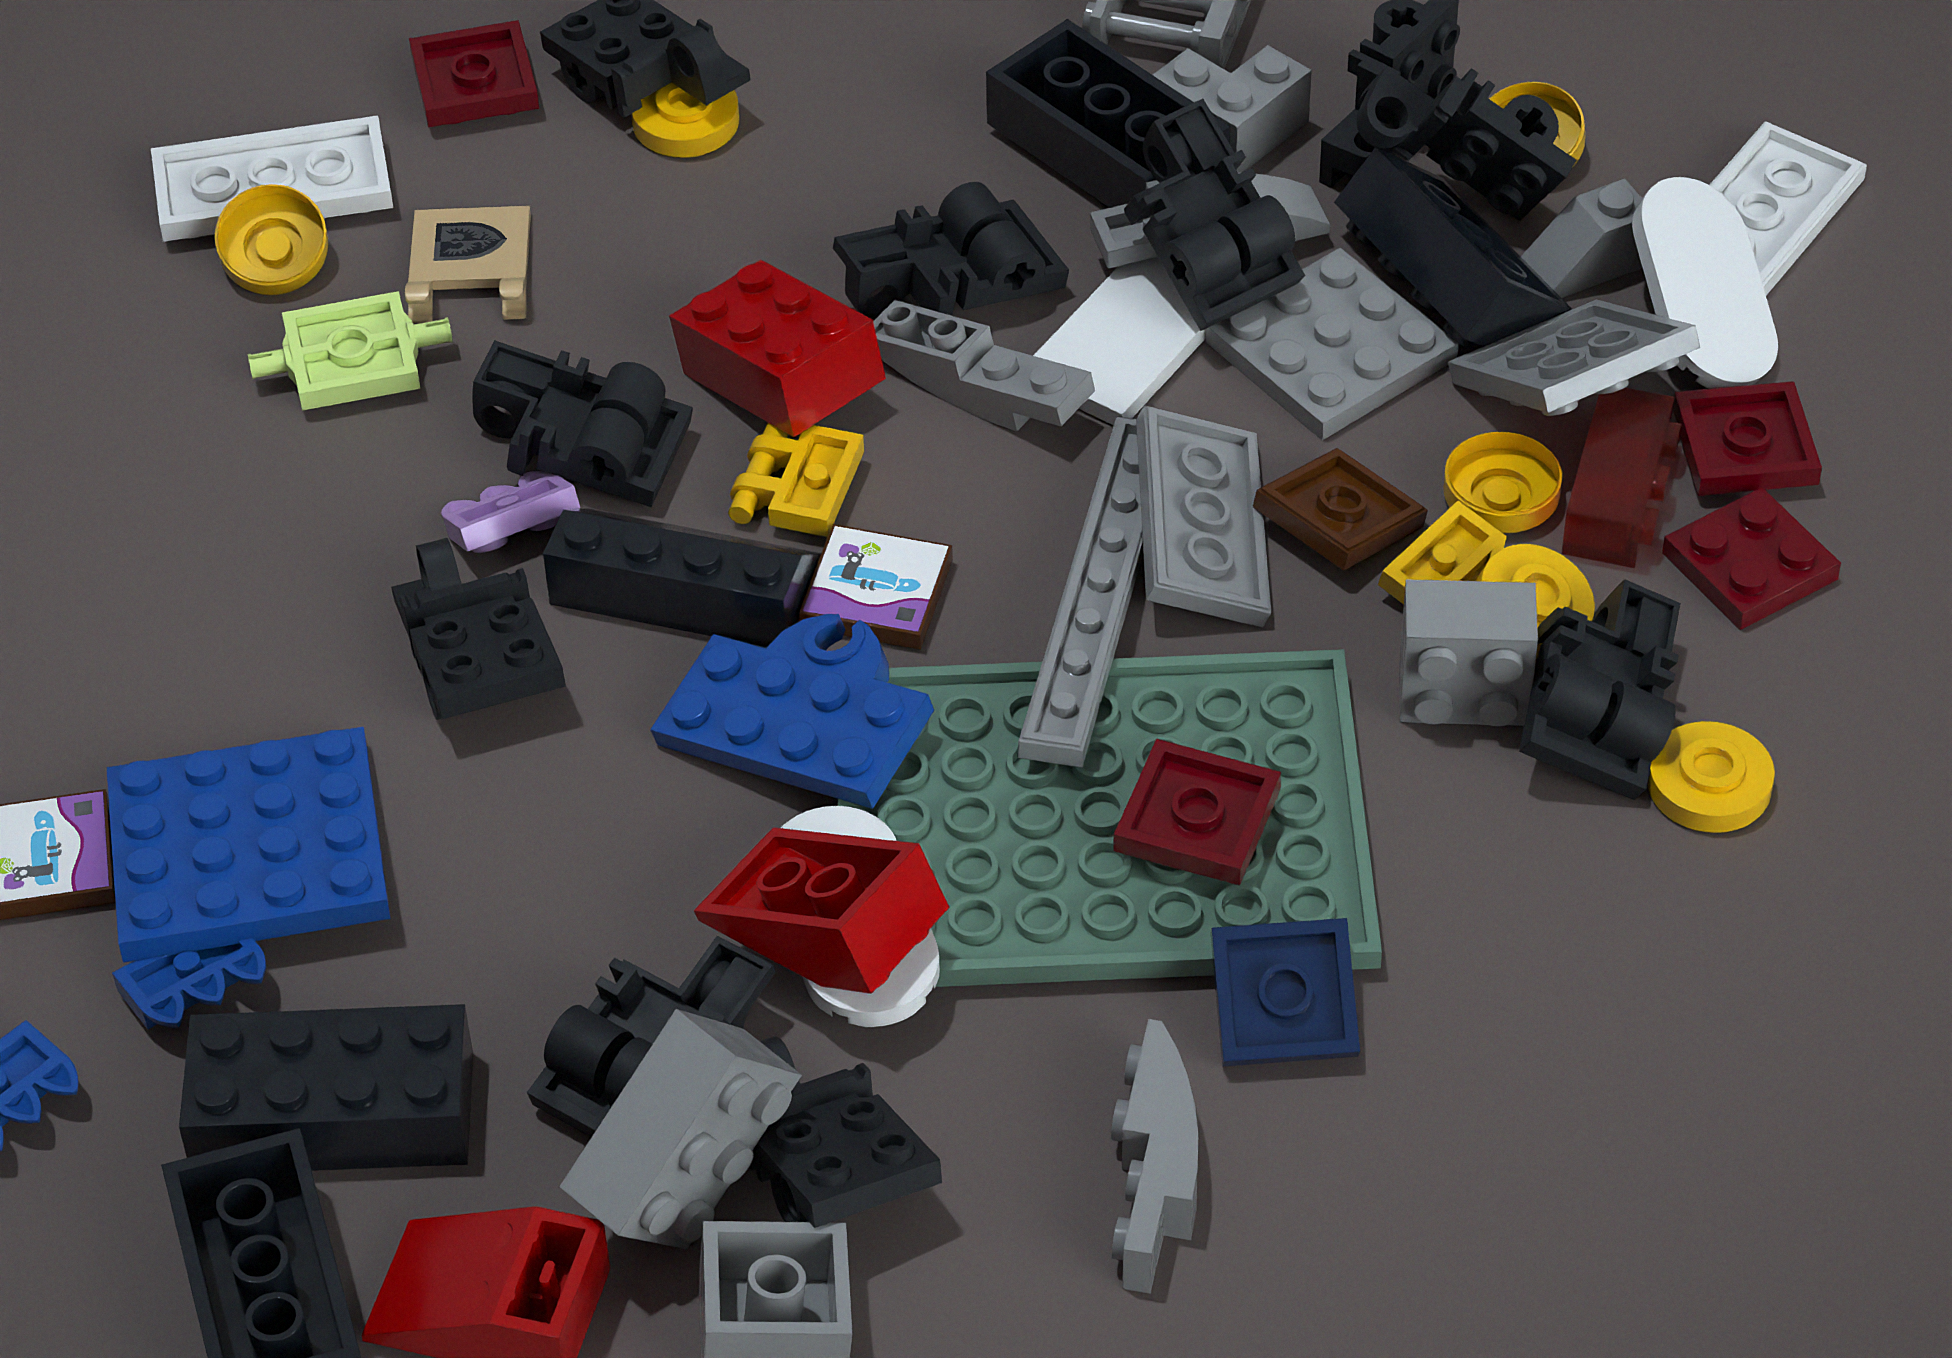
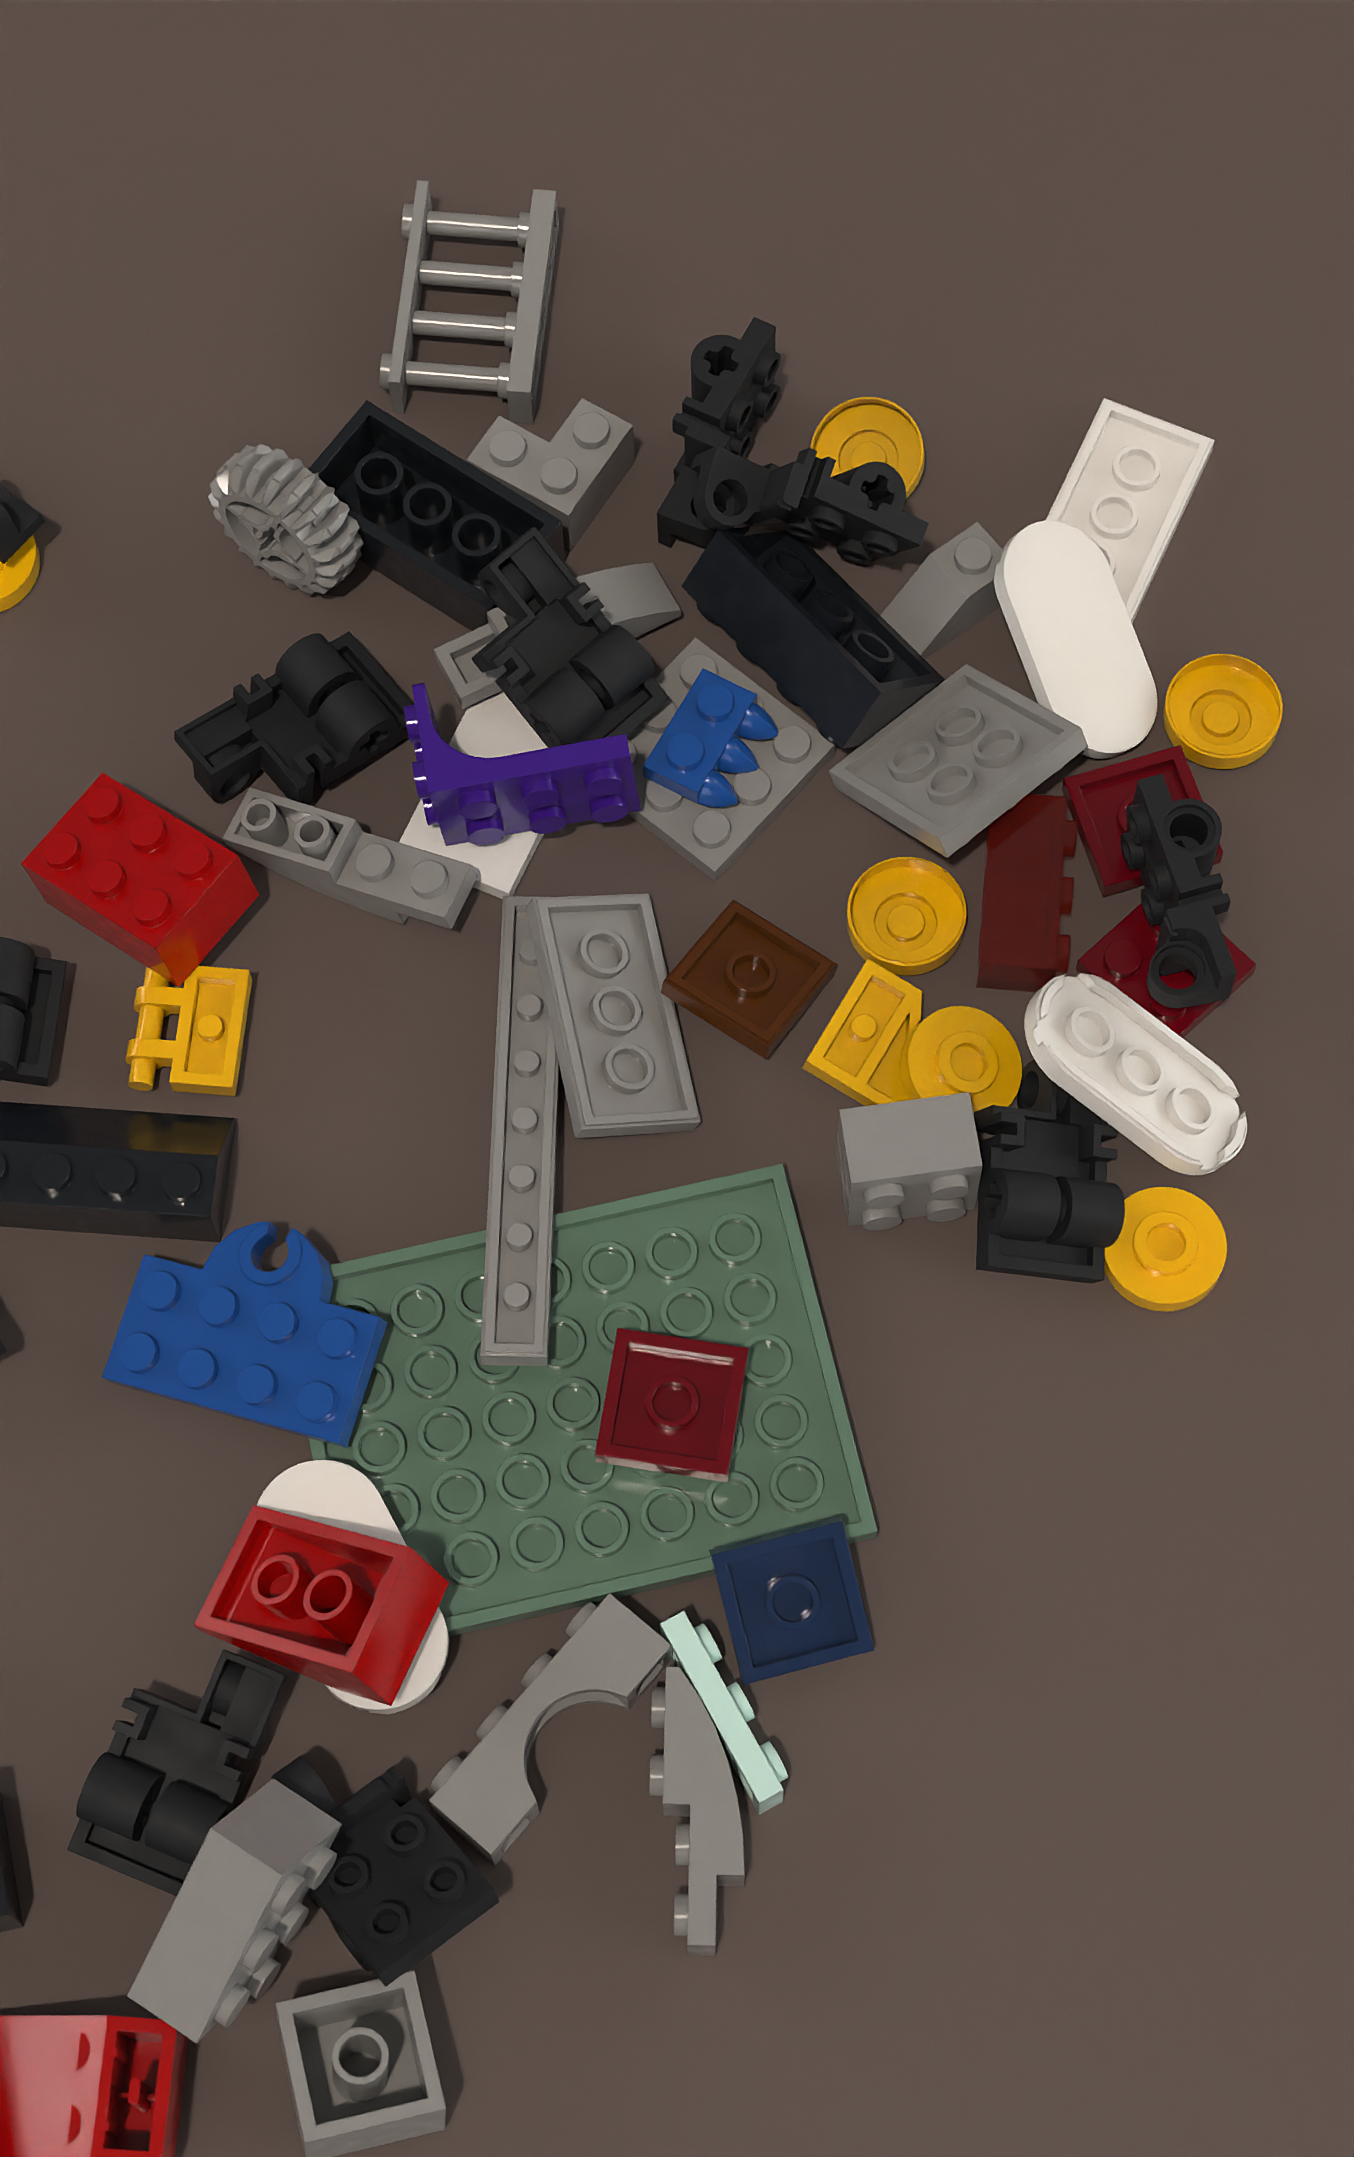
camera: 10 degrees left, 20 degrees up
(881, 581) = (296, 1151): tile -> none
(973, 96) = (285, 519): none -> light grey gear
(1076, 1023) = (605, 1661): none -> light grey arch
(1152, 312) = (520, 792): none -> dark purple bracket
(1221, 1127) = (755, 1765): none -> light aqua plate
(1336, 314) = (706, 740): none -> blue plate
(1705, 618) = (1135, 1073): none -> white tile
(1771, 455) = (1175, 853): none -> black plate
(1841, 366) = (1222, 711): none -> yellow piece

